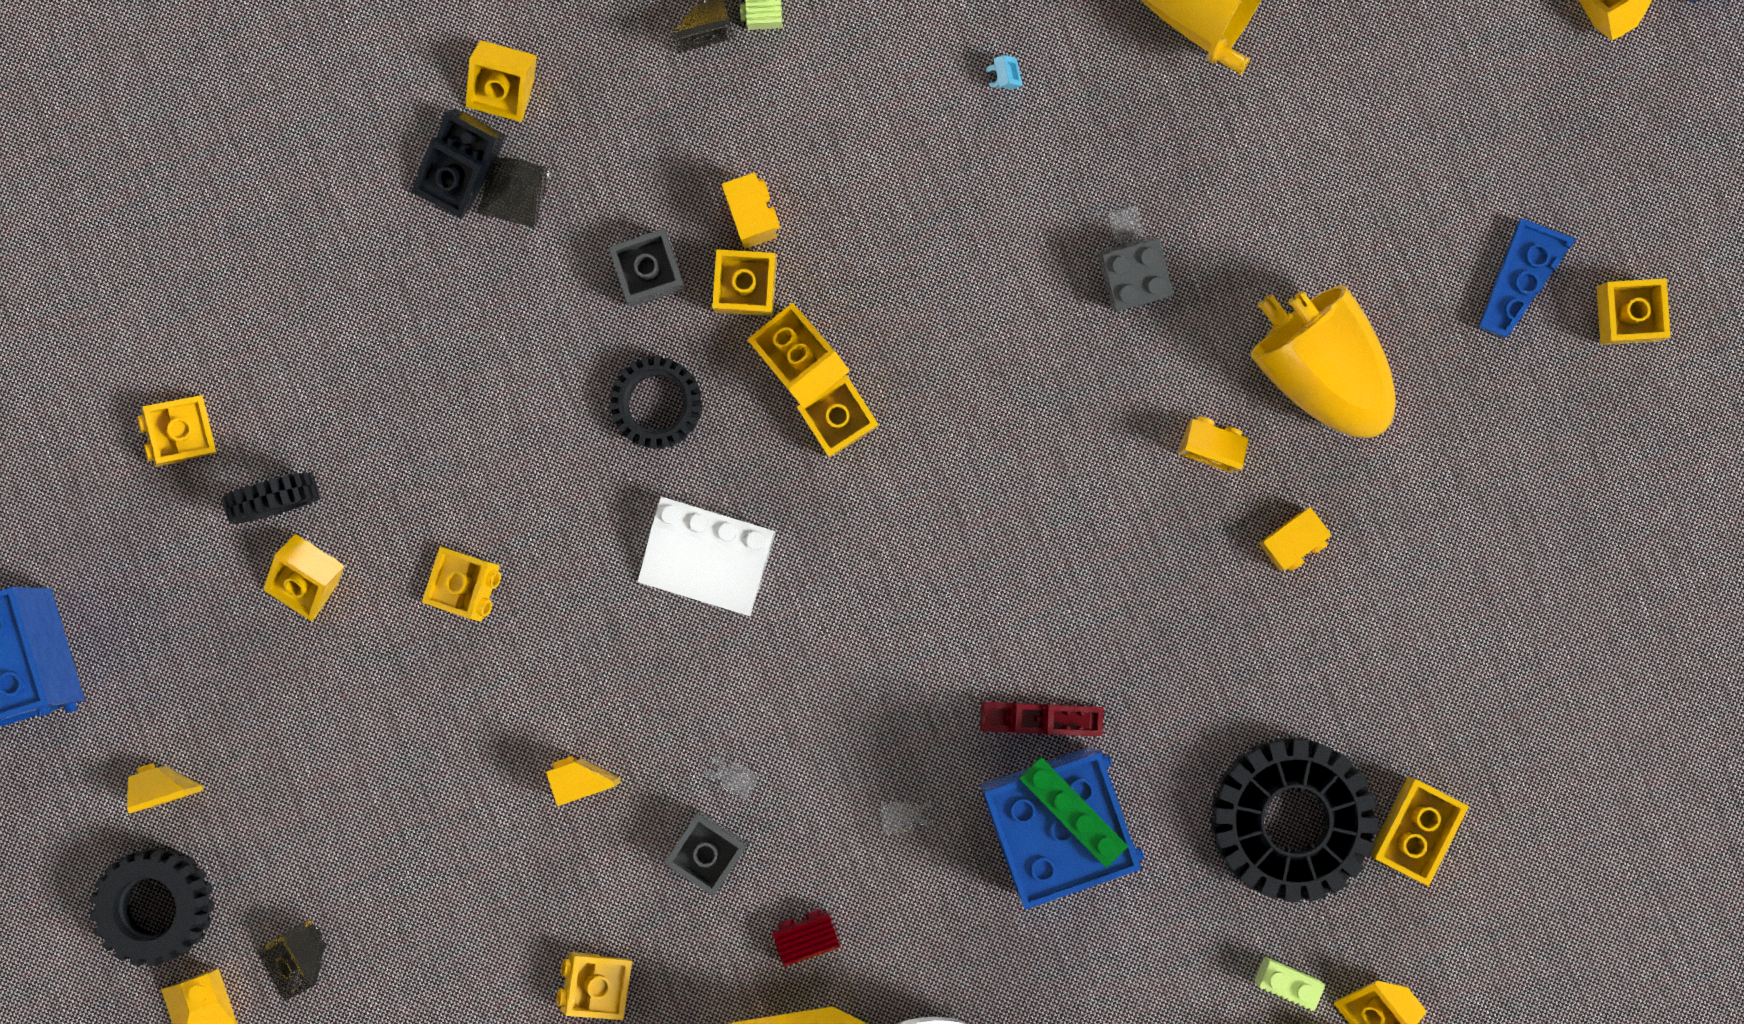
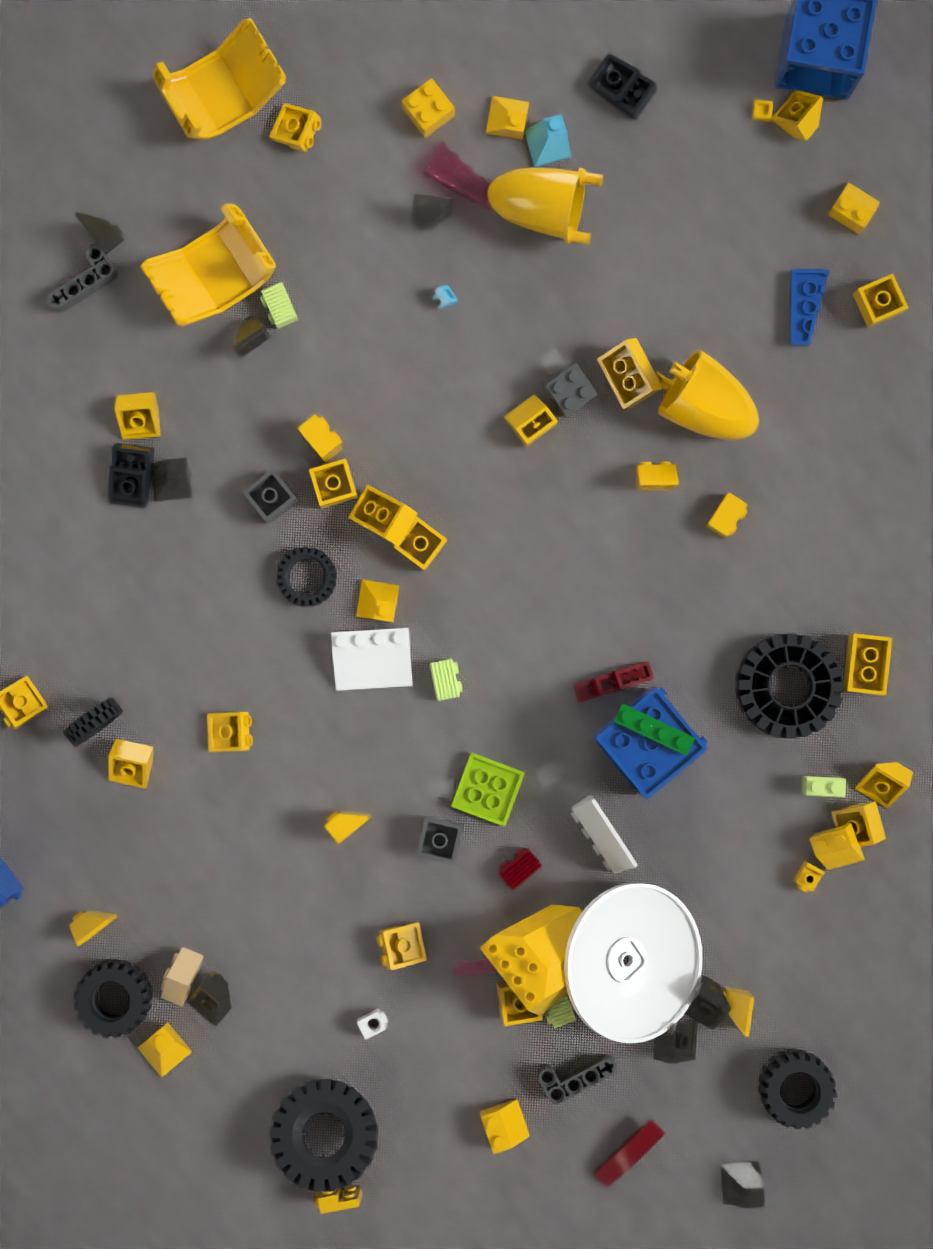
camera: 15 degrees left, 0 degrees up
(259, 913) = (180, 977): none -> tan brick
(745, 475) = (377, 601): none -> yellow slope
(800, 625) = (445, 679): none -> yellowish green brick
(803, 806) = (488, 789): none -> lime plate
(944, 936) = (603, 835): none -> white slope
(1063, 297) = (531, 420): none -> yellow slope
(1230, 282) = (629, 373): none -> yellow brick
(1645, 163) = (854, 208): none -> yellow slope

